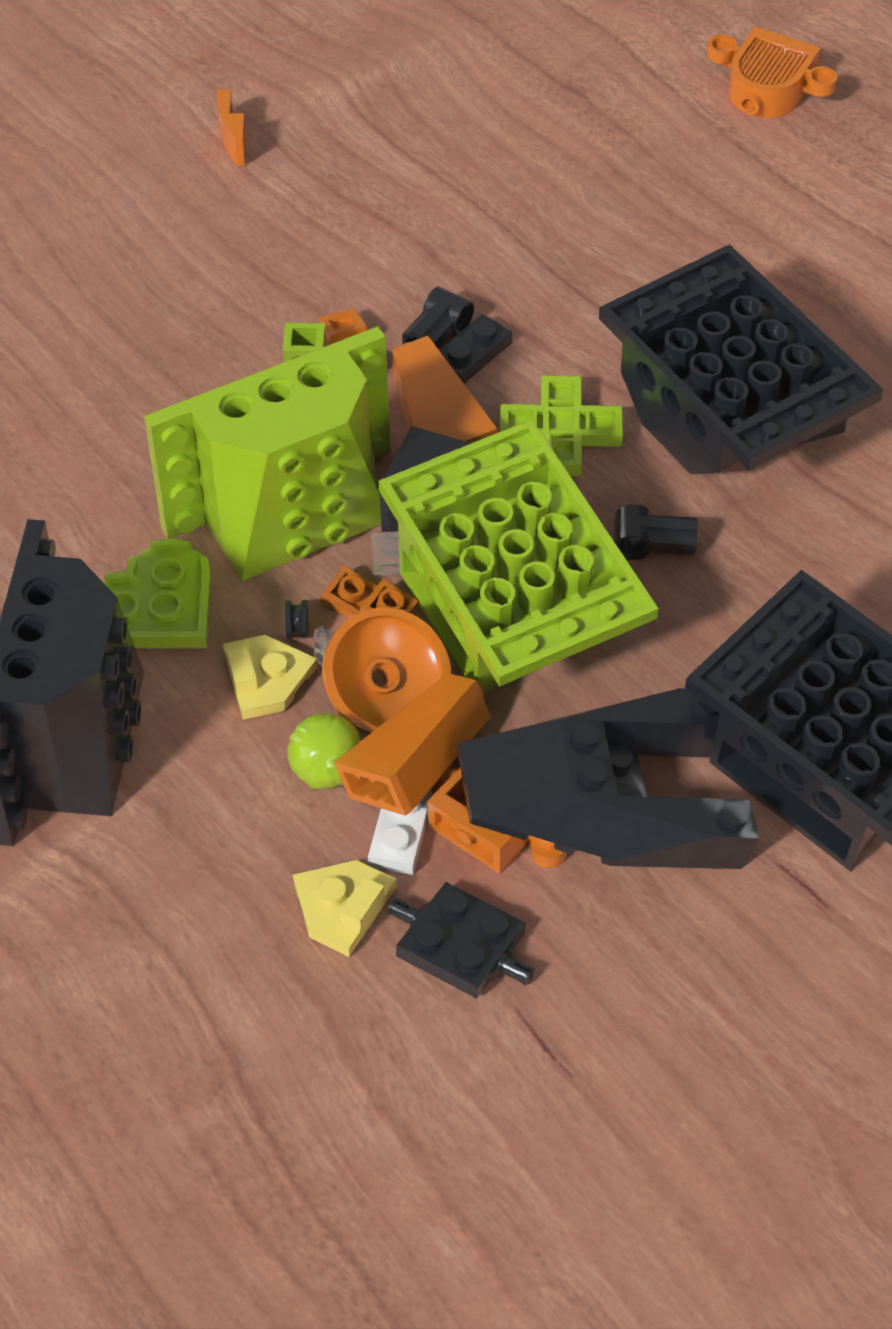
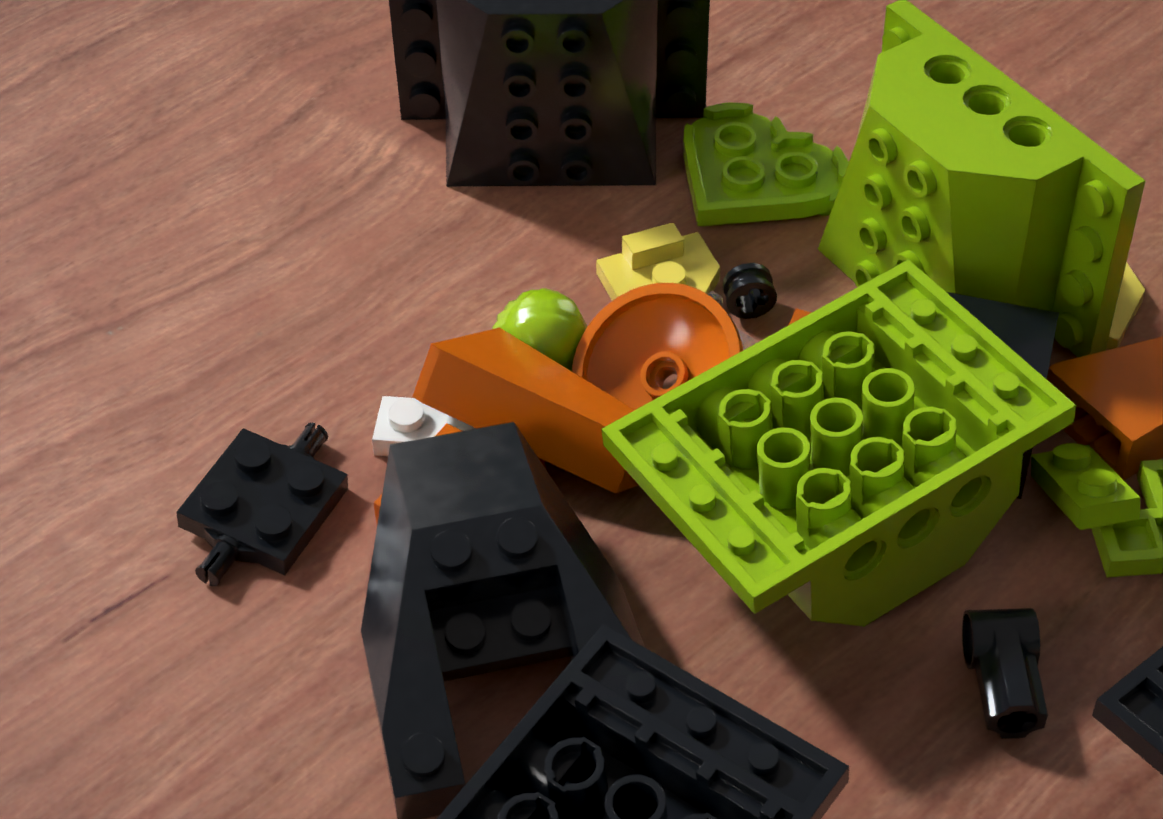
camera: 85 degrees right, 5 degrees down
(342, 902) = (320, 384): light yellow plate -> none

